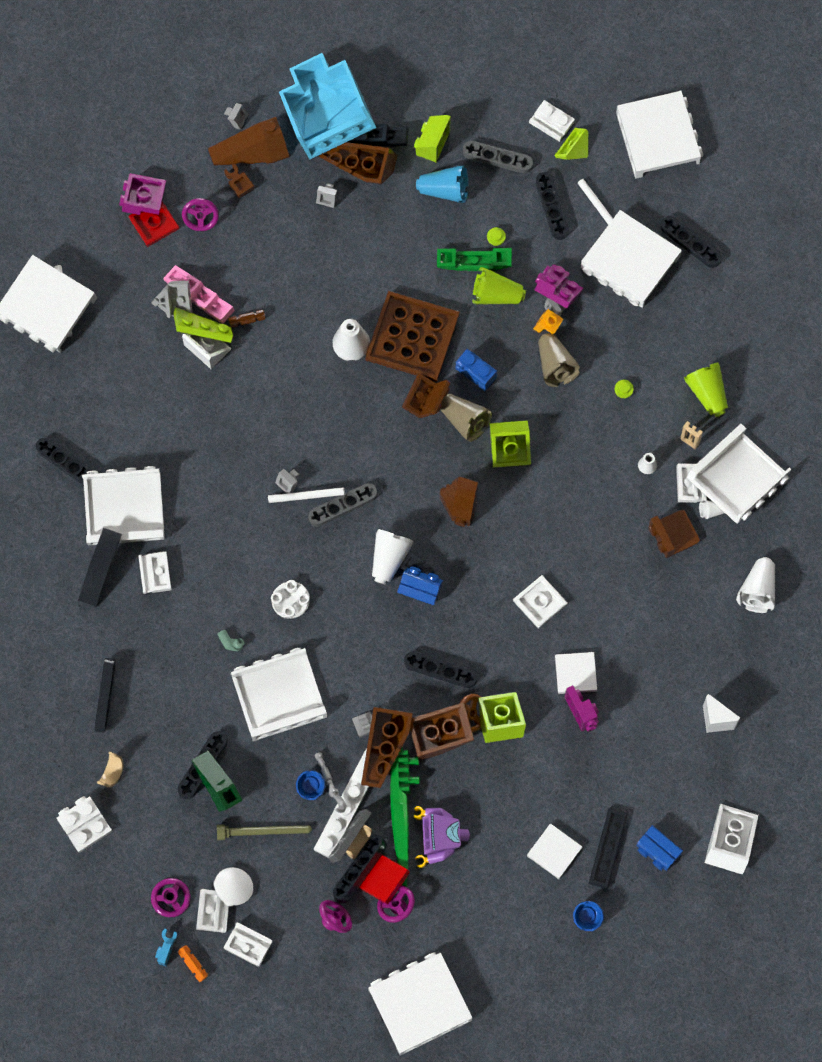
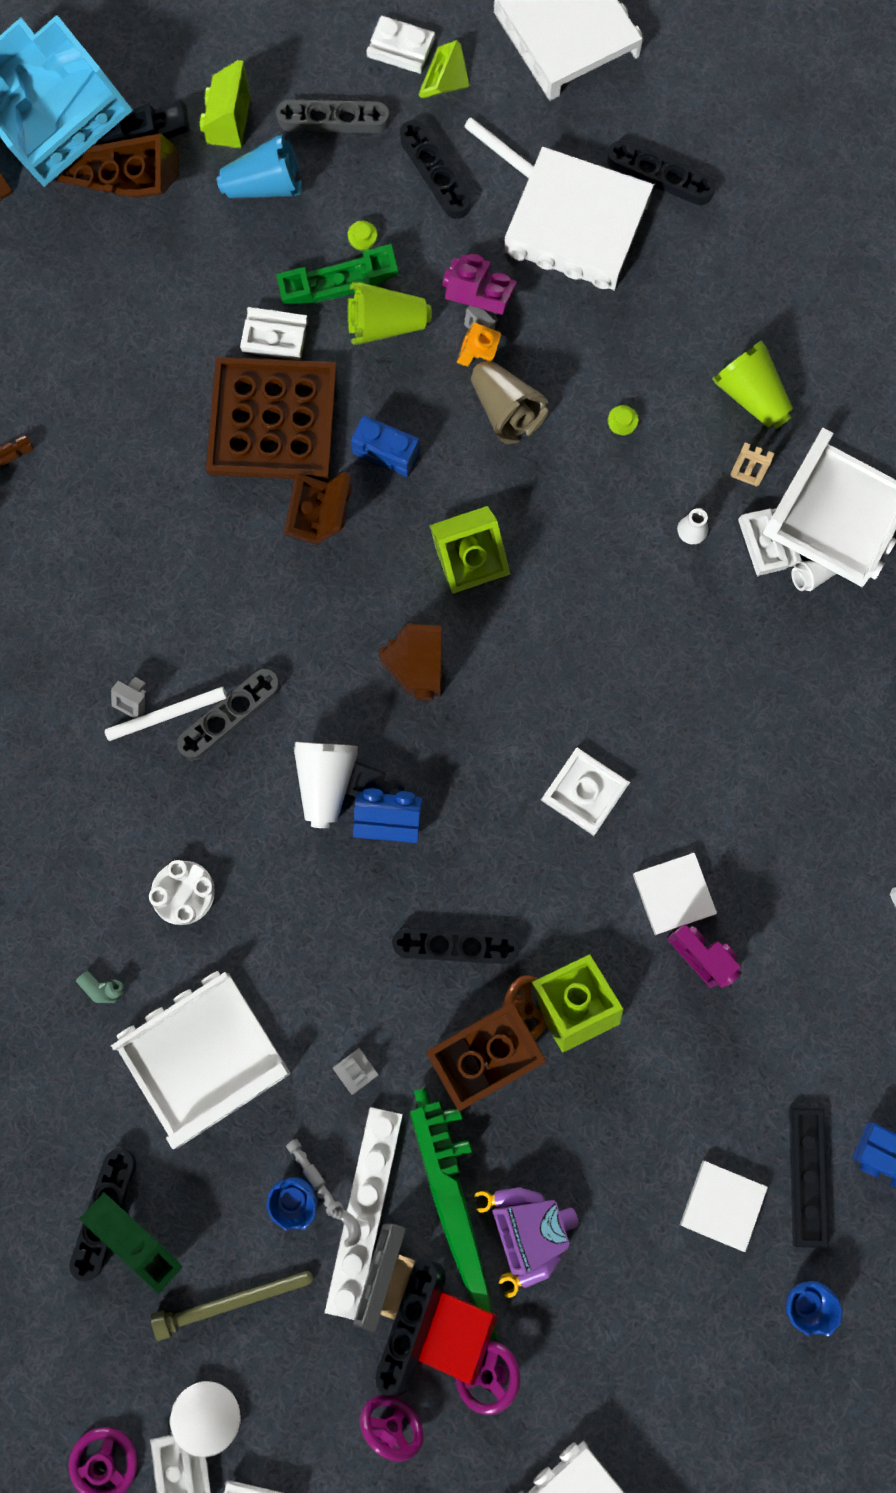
camera: 15 degrees left, 5 degrees up
(326, 195) = (83, 234): light grey tile -> none
(351, 341) = (176, 448): white cone -> none
(385, 741) = (398, 1095): reddish brown wedge -> none
(427, 284) = (274, 333): none -> white plate
(466, 416) = (389, 523): dark tan cone -> none
(673, 533) = (765, 627): reddish brown bracket -> none

